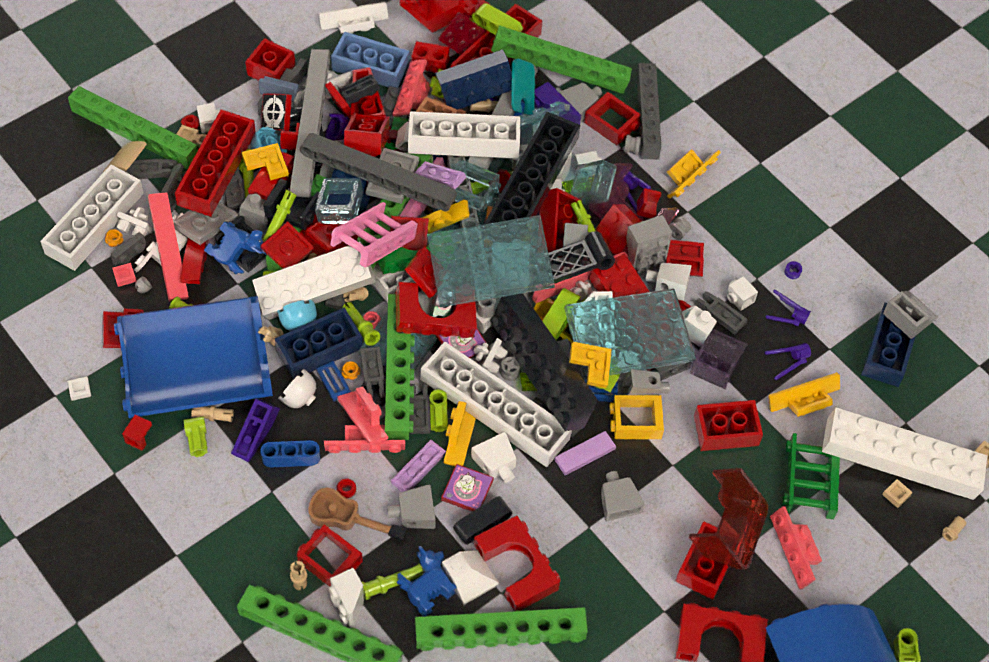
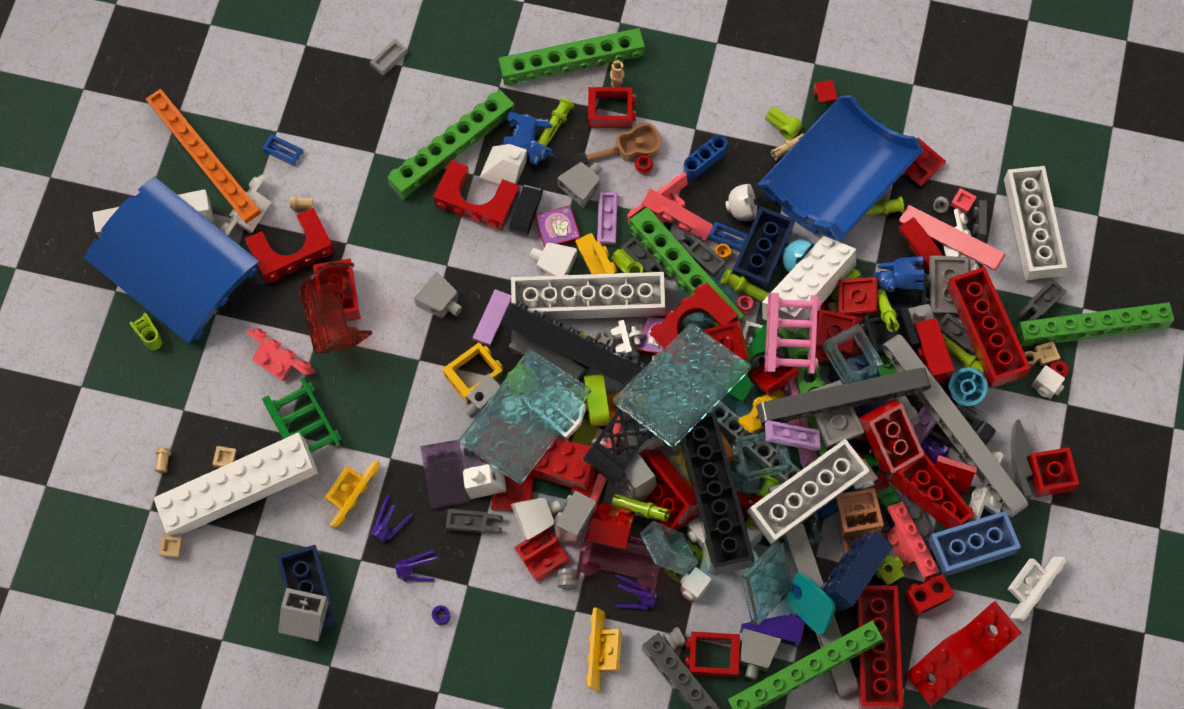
camera: 145 degrees right, 10 degrees up
(79, 388) = (901, 99): white tile -> none
(114, 234) = (1007, 222): light orange plate -> none
(125, 222) = (1006, 244): white hips -> none
(127, 155) = (1068, 290): tan slope -> none
(173, 183) = (1007, 297): dark grey hinge -> none
(255, 429) = (747, 157): dark purple slope -> none
(266, 156) = (944, 353): yellow plate -> none
(270, 334) = (801, 230): tan plate -> none
(275, 86) = (1015, 443): sand blue panel -> none
(276, 111) = (994, 419): tile -> none
(288, 139) = (959, 399): red panel -> none
(348, 595) = (571, 83): white slope -> none
(355, 91) = (943, 484): black plate -> none
(461, 33) = (919, 627): dark red bracket -> none
(490, 19) = (895, 660): lime beam -> none
(596, 359) = (529, 358): yellow plate -> none
(648, 203) = (610, 581): red panel -> none
(728, 425) = (395, 412): red brick -> none
(741, 293) = (469, 551): white brick -> none

